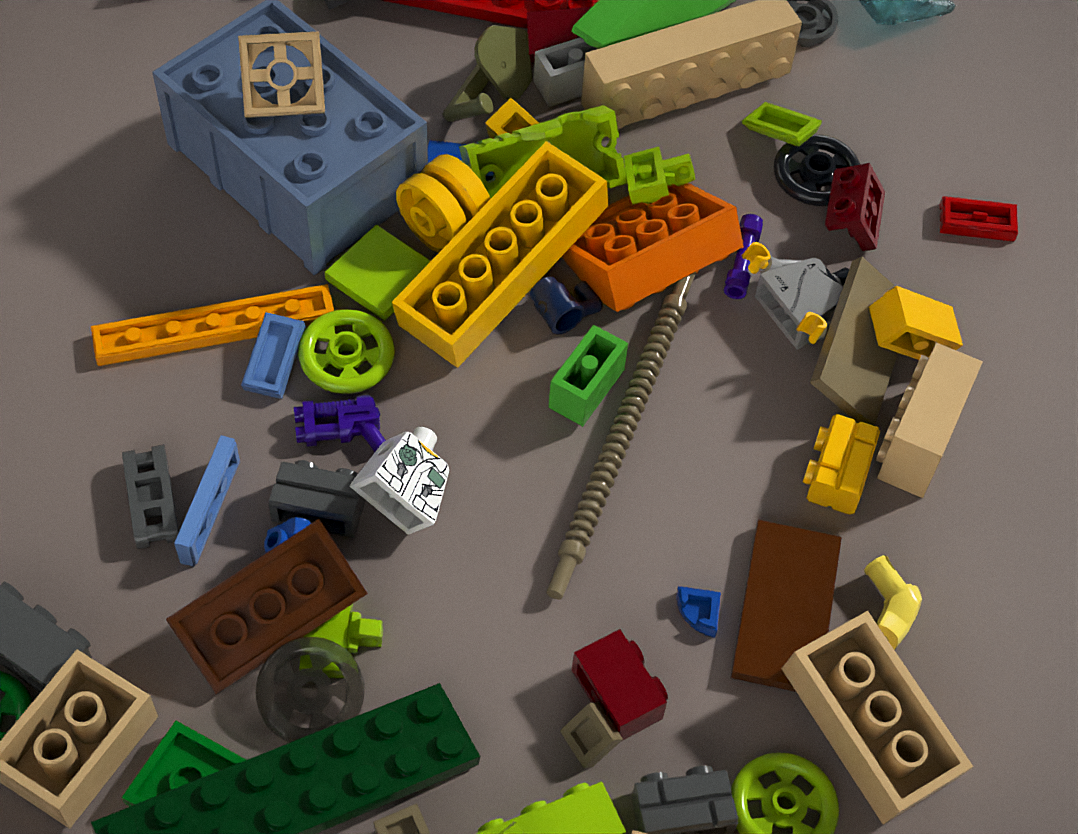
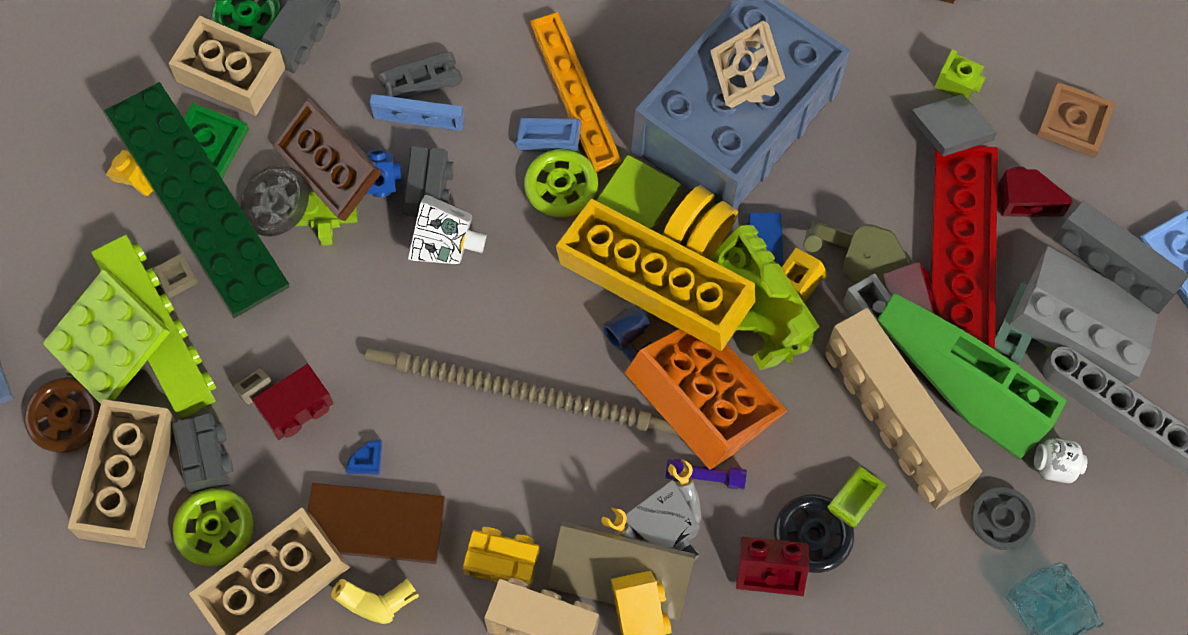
camera: 85 degrees right, 10 degrees up
(354, 417) = (502, 198): dark purple piece -> none
(587, 375) = (553, 353): bright green brick -> none
(650, 174) = (773, 388): lime hinge -> none

